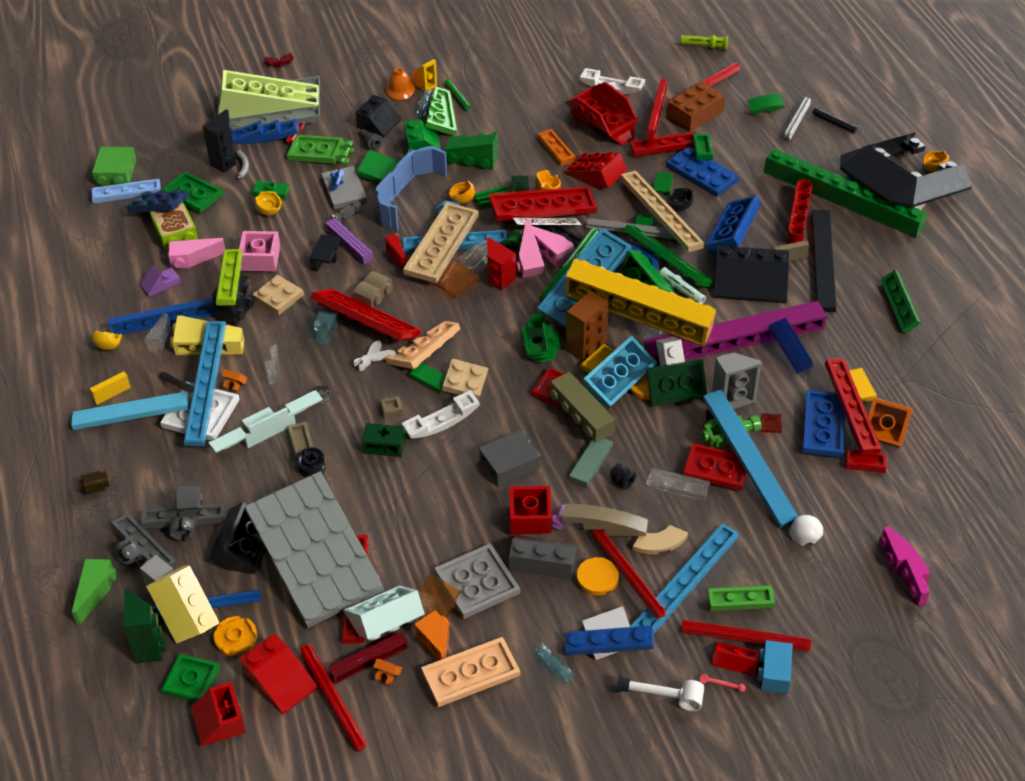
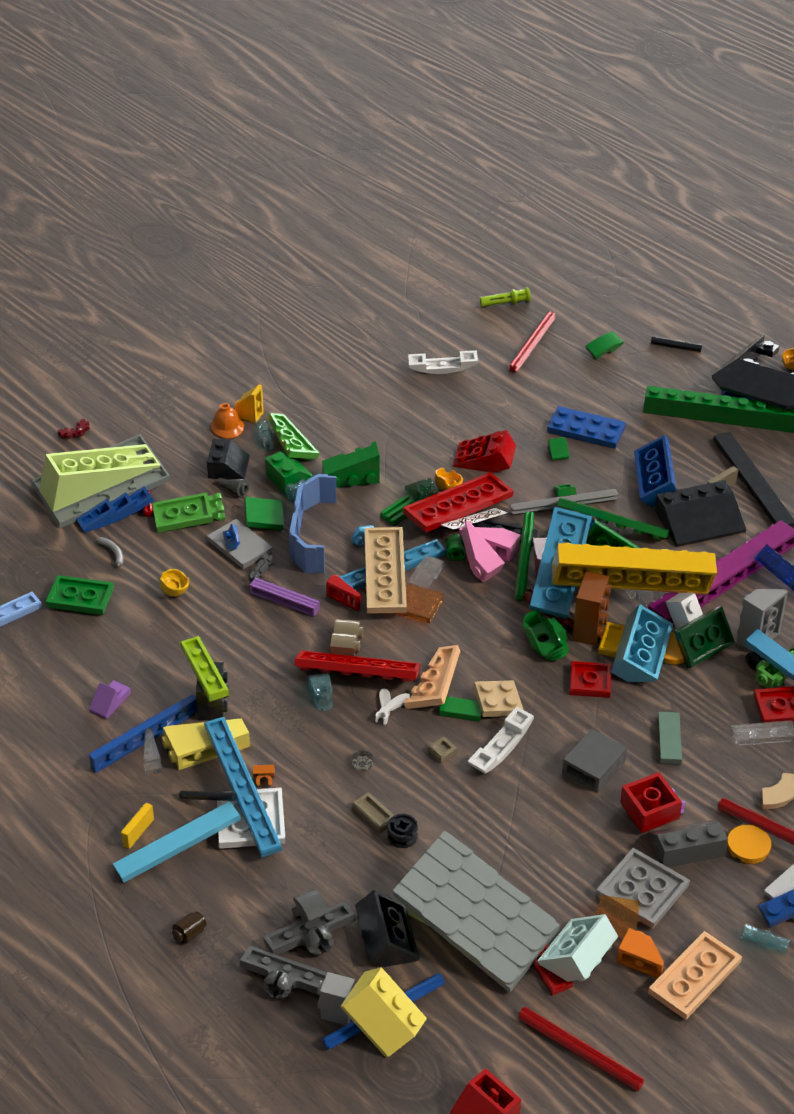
camera: 25 degrees left, 5 degrees down
(92, 587) = (263, 1024): bright green slope -> none
(106, 340) = (98, 778): yellow hair -> none
(142, 629) = (359, 1050): dark green slope -> none
(157, 201) = (53, 615): dark blue plate -> none
(173, 225) = (86, 636): brick -> none
(190, 678) = (428, 1085): green tile -> none
(193, 252) = (126, 658): bright pink slope -> none
(220, 142) = (86, 532): black slope -> none
(235, 636) = (444, 1027): light orange tile -> none
(259, 250) = (207, 627): bright pink brick -> none
(266, 423) = (325, 811): light aqua piece -> none
(272, 365) = (295, 745): clear slope -> none
(277, 673) = (514, 1046): red slope -> none
(278, 294) = (248, 673): tan plate -> none
(280, 189) = (154, 569): green plate -> none
(324, 251) = (270, 614): black panel -> none
(366, 658) = (589, 998): dark red piece -> none
(383, 440) = (460, 783): dark green brick -> none
(386, 668) = (617, 1000): orange tile -> none
(457, 94) = (292, 416): green bar -> none
(462, 192) = (369, 513): light orange hair -> none
(500, 264) = (458, 574): red slope -> none
(556, 147) = (429, 442): orange tile -> none
(582, 407) = (633, 688): olive brick -> none
(605, 110) = (458, 390): red slope -> none
(611, 520) = (733, 787): dark tan slope -> none
(623, 475) = (710, 741): black bush -> none
(657, 110) = (509, 379): red tile -> none
(662, 144) = (533, 410): red plate -> none
(662, 211) = (579, 476): tan plate -> none
(680, 199) = (588, 459): black hair -> none
(695, 106) = (541, 364): dark orange brick -> none
(696, 296) = (643, 543): light aqua pin -> none
(702, 147) = (576, 403): green tile -> none
(797, 117) = (641, 351): light grey axle -> none
(799, 211) = (705, 442): red beam -> none

